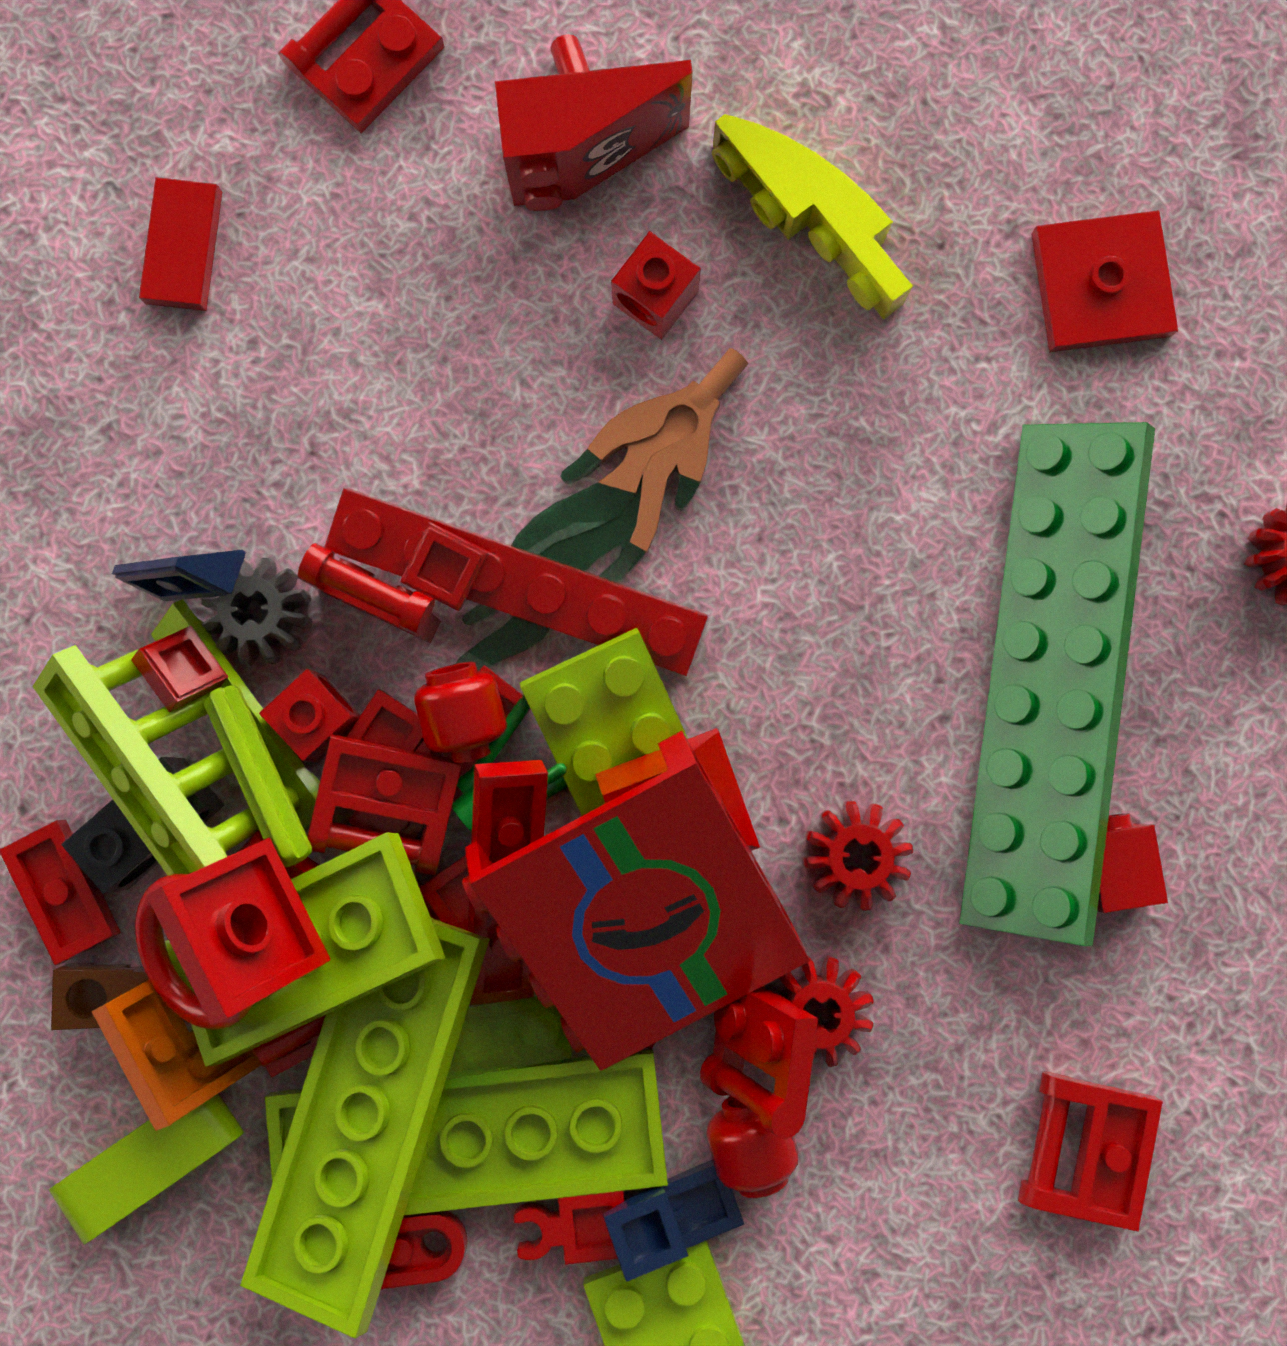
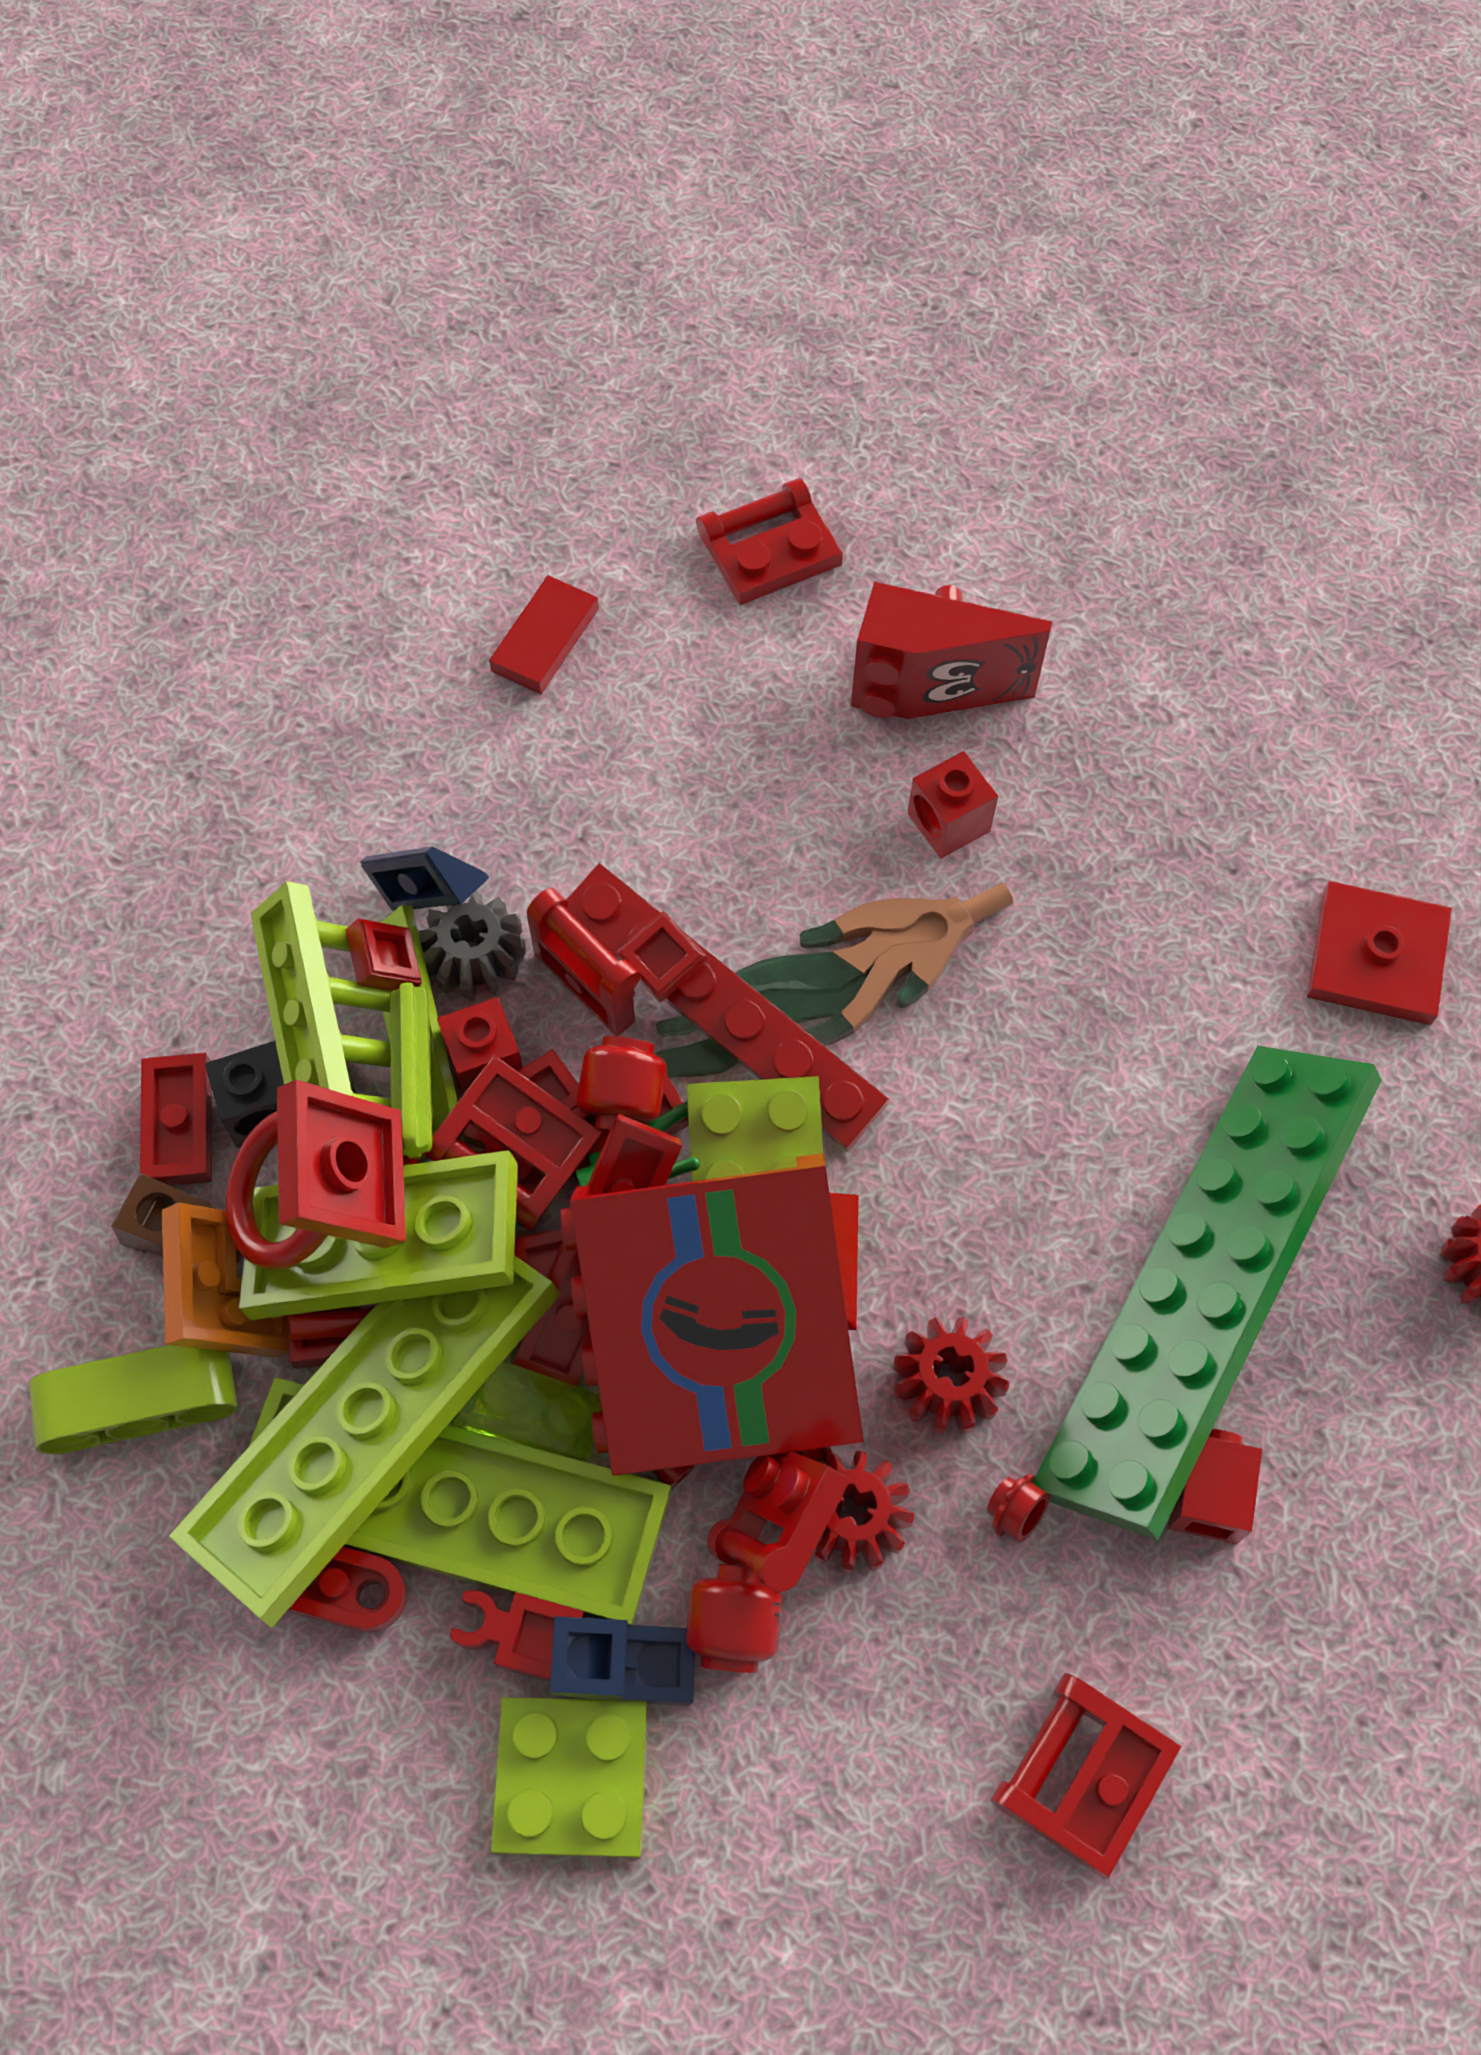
camera: 20 degrees right, 20 degrees down
(802, 189) = (1122, 779): neon yellow slope -> none
(954, 947) = (1017, 1507): none -> red plate

